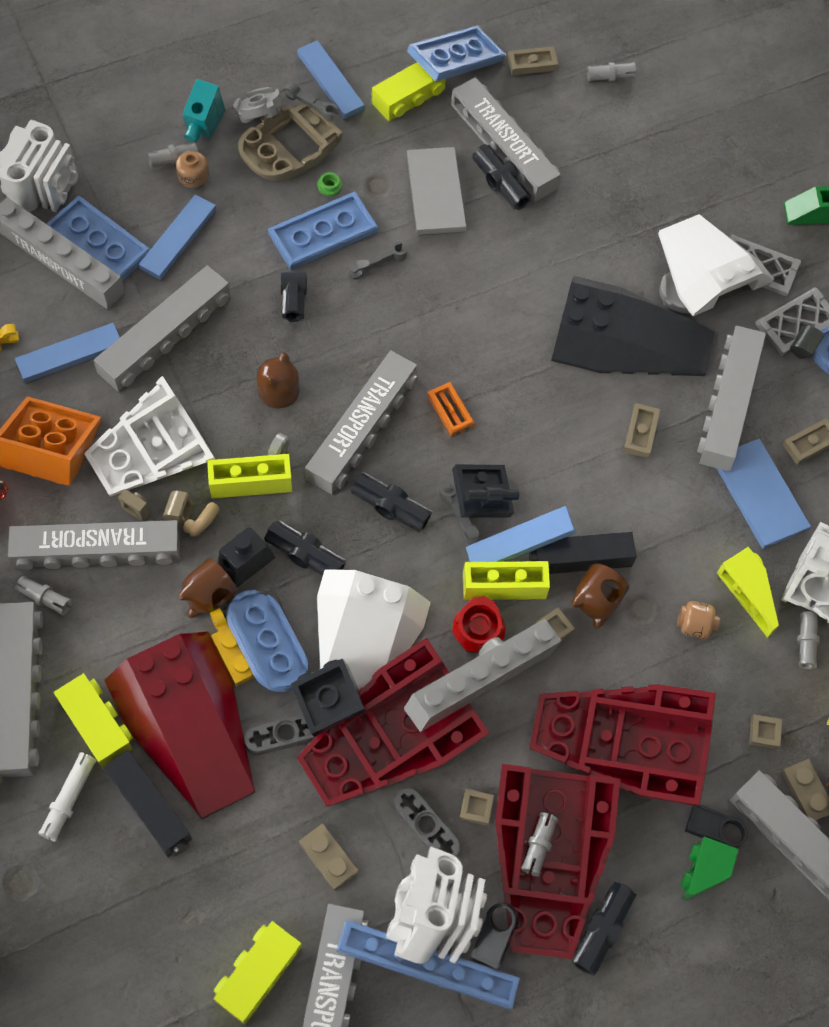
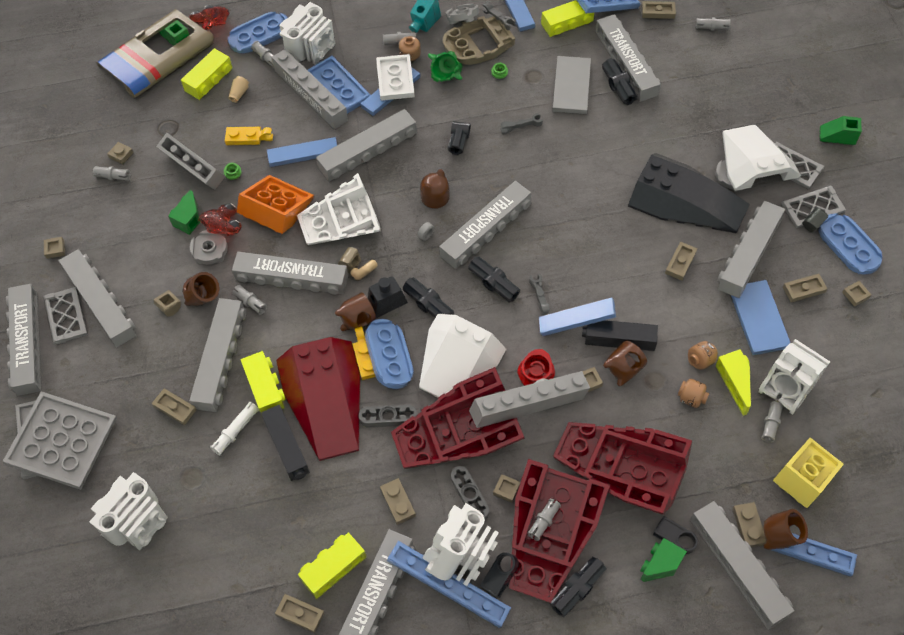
camera: 20 degrees right, 5 degrees down
(134, 504) = (321, 252): dark tan plate -> none
(181, 217) = (395, 77): none -> white plate
(249, 476) = (401, 246): neon yellow brick -> none
(251, 190) = (445, 66): none -> green hair
(322, 230) = (488, 99): medium blue tile -> none
(328, 696) = (420, 394): black plate -> none
(460, 427) = (552, 238): orange tile -> none
(483, 491) = (559, 282): black plate -> none
(506, 580) = (561, 342): neon yellow brick -> none
(699, 563) = (702, 355): none -> medium nougat head
(765, 731) = (726, 478): dark tan plate -> none

